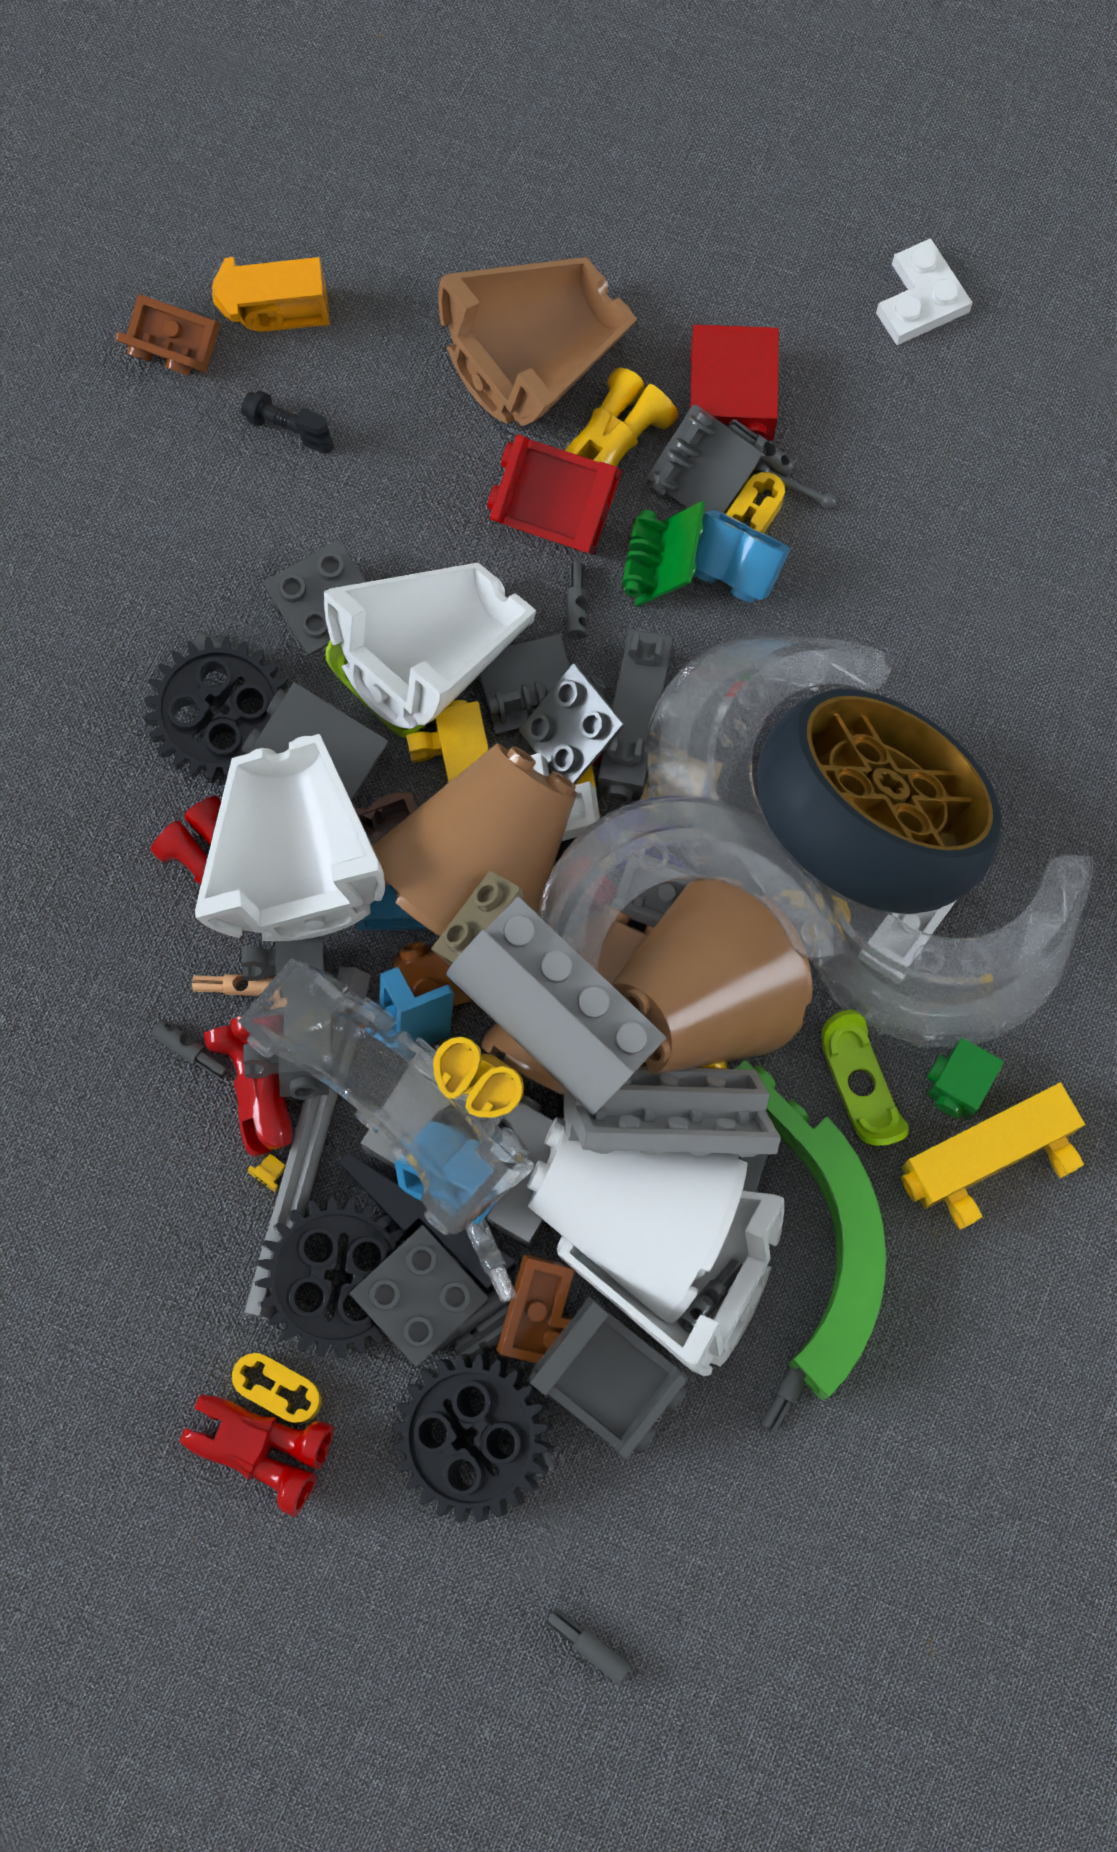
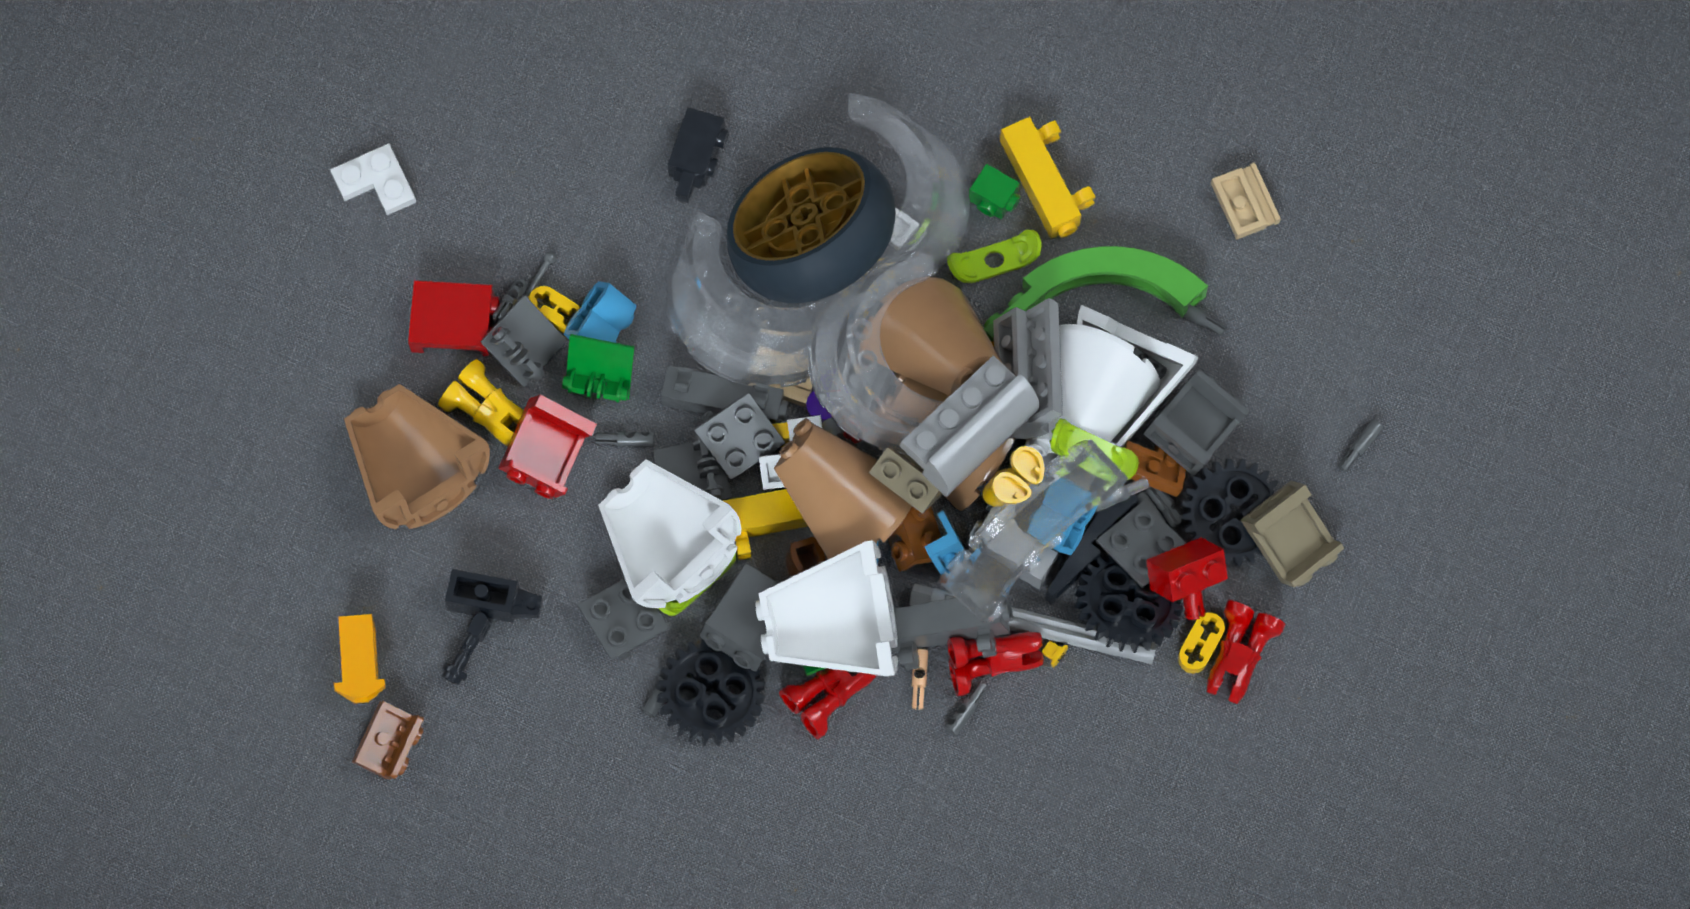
camera: 90 degrees left, 0 degrees up
(351, 435) = (490, 595): none -> black hinge
(365, 1359) = (1186, 572): none -> red brick
(432, 1529) = (1292, 535): none -> dark tan panel
(537, 1236) = (1067, 435): none -> lime piece
(980, 1464) = (1245, 201): none -> tan plate
(991, 671) = (695, 151): none -> black hinge

